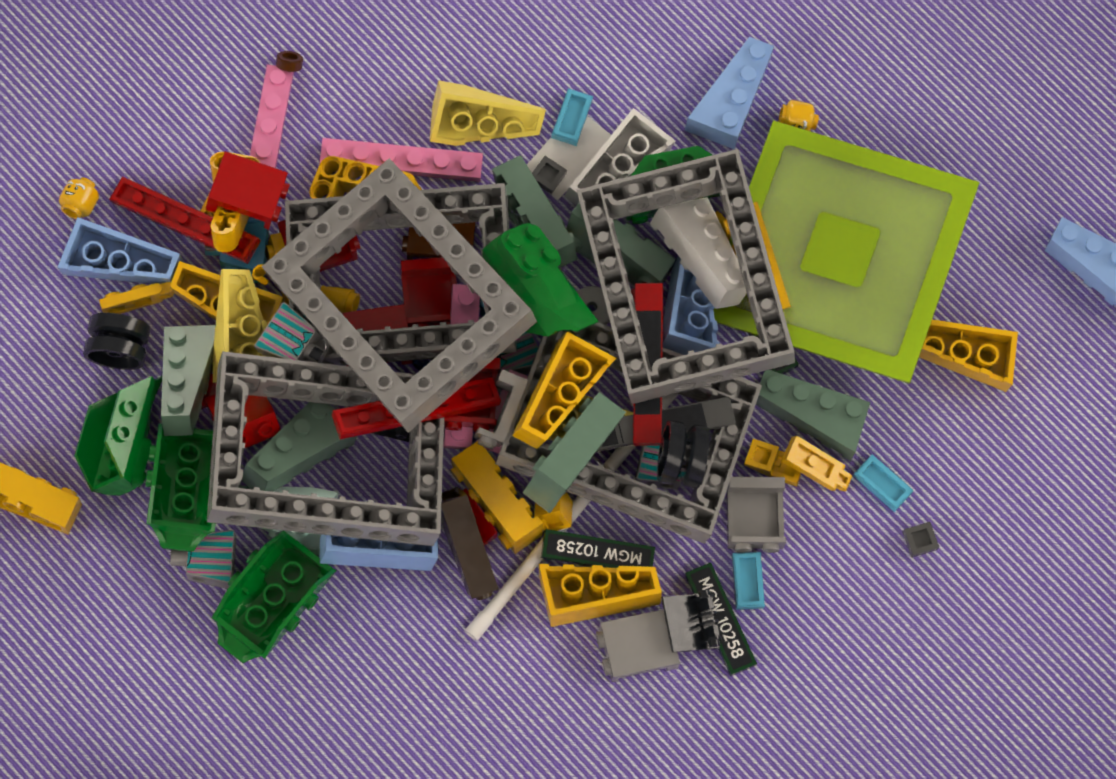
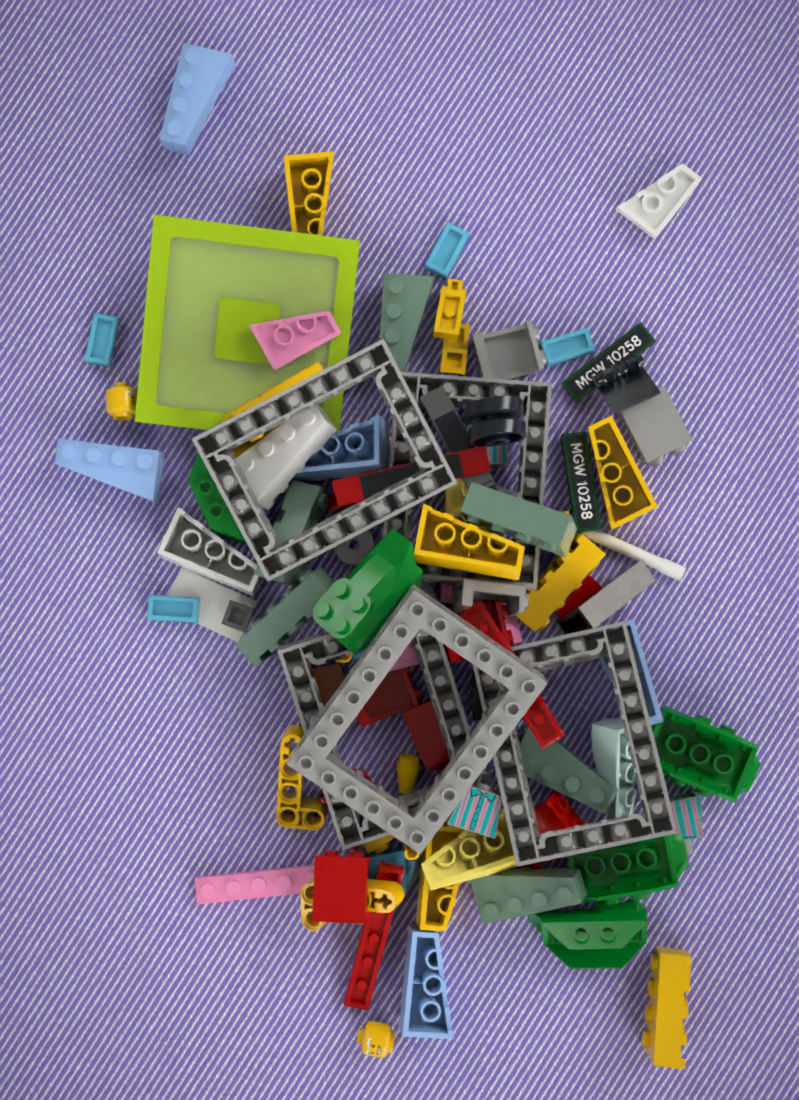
camera: 90 degrees left, 15 degrees up
(116, 341) = (507, 963): black wheel -> none
(138, 297) = (455, 955): yellow hinge -> none
(289, 61) = (189, 884): reddish brown tile -> none
(410, 159) = (256, 753): bright pink plate -> none
(473, 114) = (196, 700): light yellow wedge -> none
(822, 290) = (294, 336): none -> bright pink wing
(867, 117) = (102, 340): none -> medium azure tile
(885, 721) = (659, 202): none -> white wing
(920, 539) = (491, 205): dark grey plate -> none

